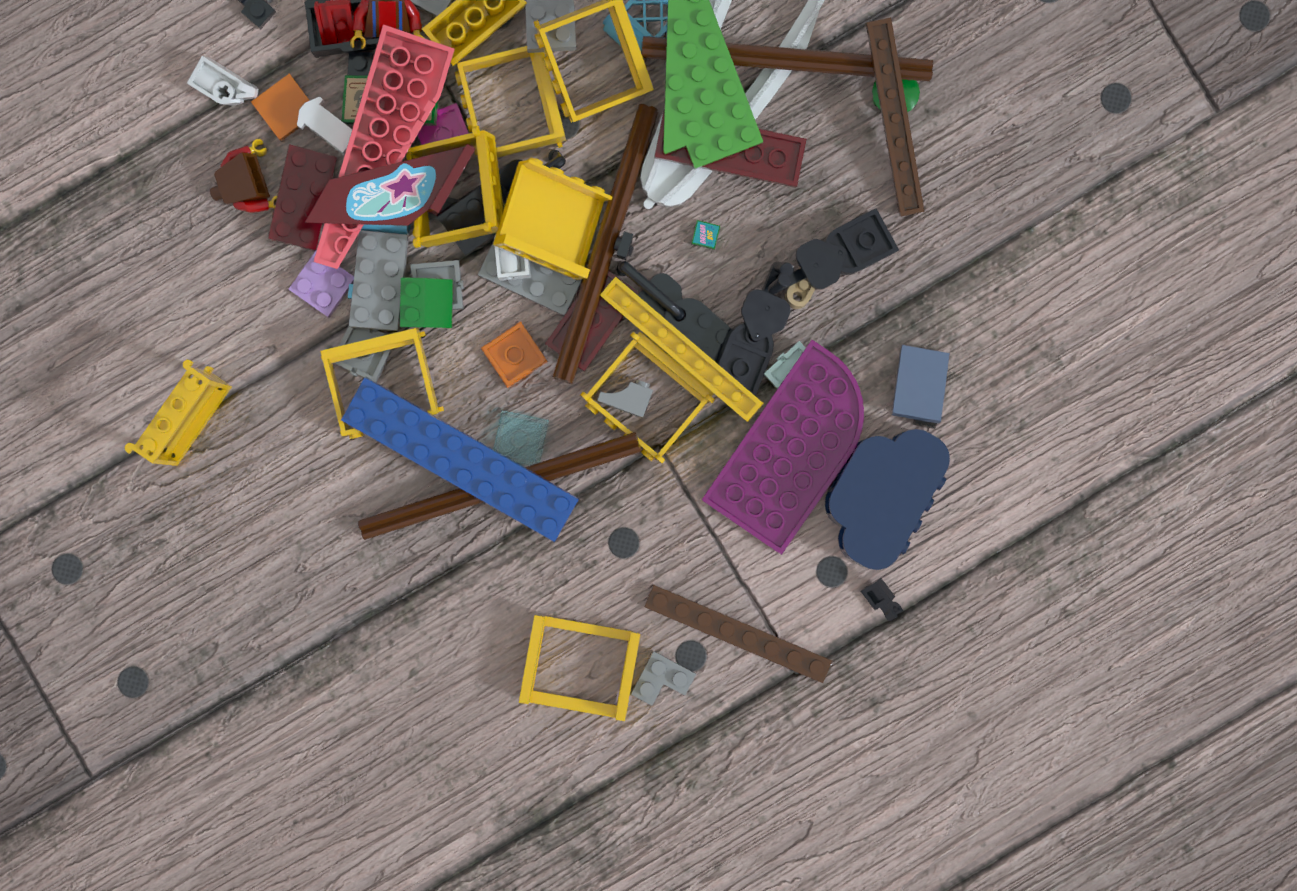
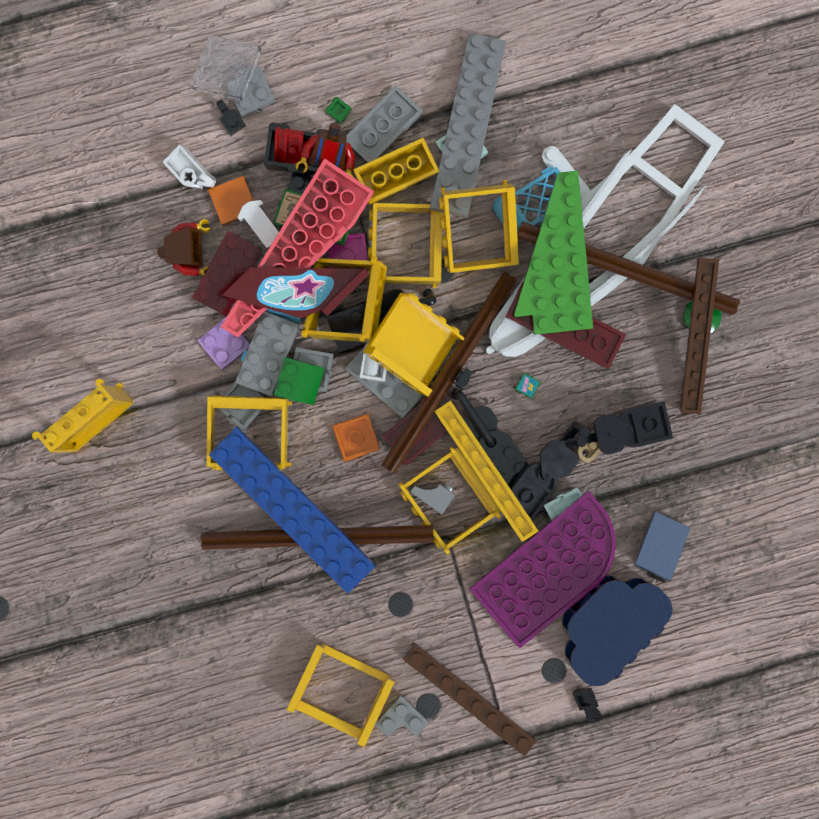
camera: 10 degrees right, 0 degrees up
(521, 437) = (343, 503): clear light blue tile -> none

